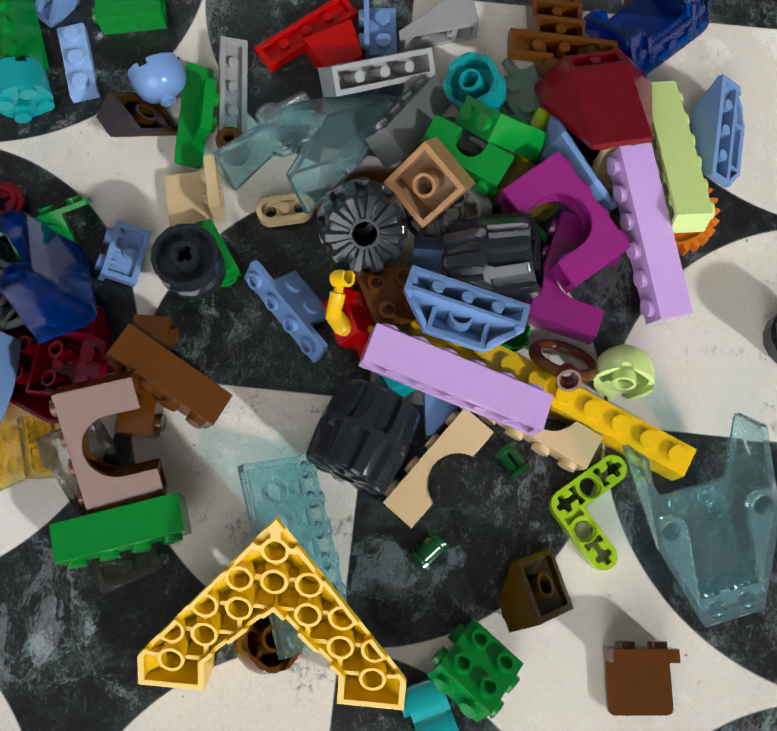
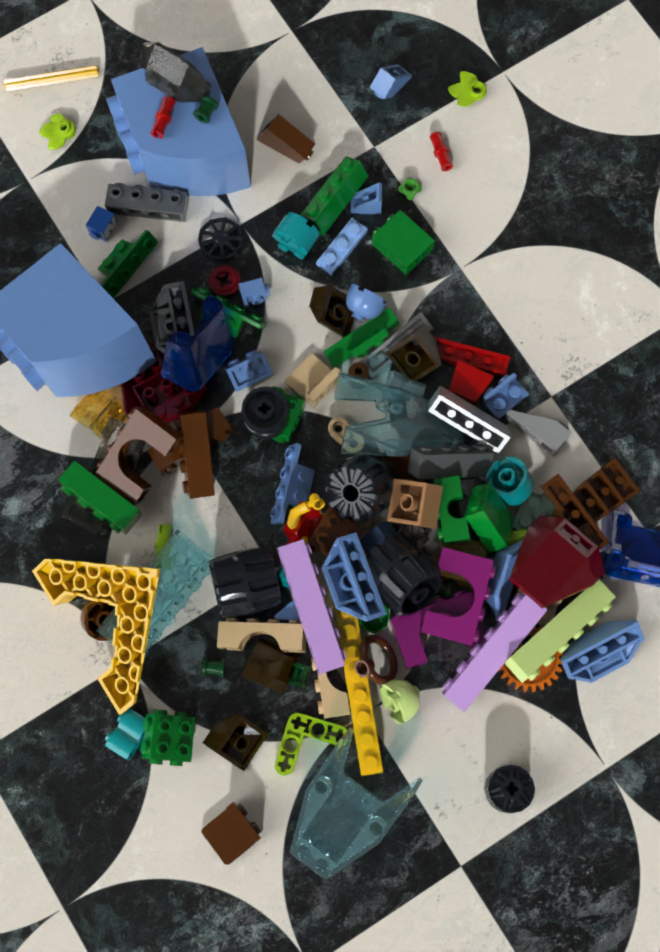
camera: 55 degrees right, 0 degrees up
(41, 181) = (254, 292): none -> medium blue brick
(232, 494) = (163, 537): none -> lime pin
(260, 73) = (416, 354): none -> dark brown slope
(475, 485) = (270, 666): none -> dark brown slope

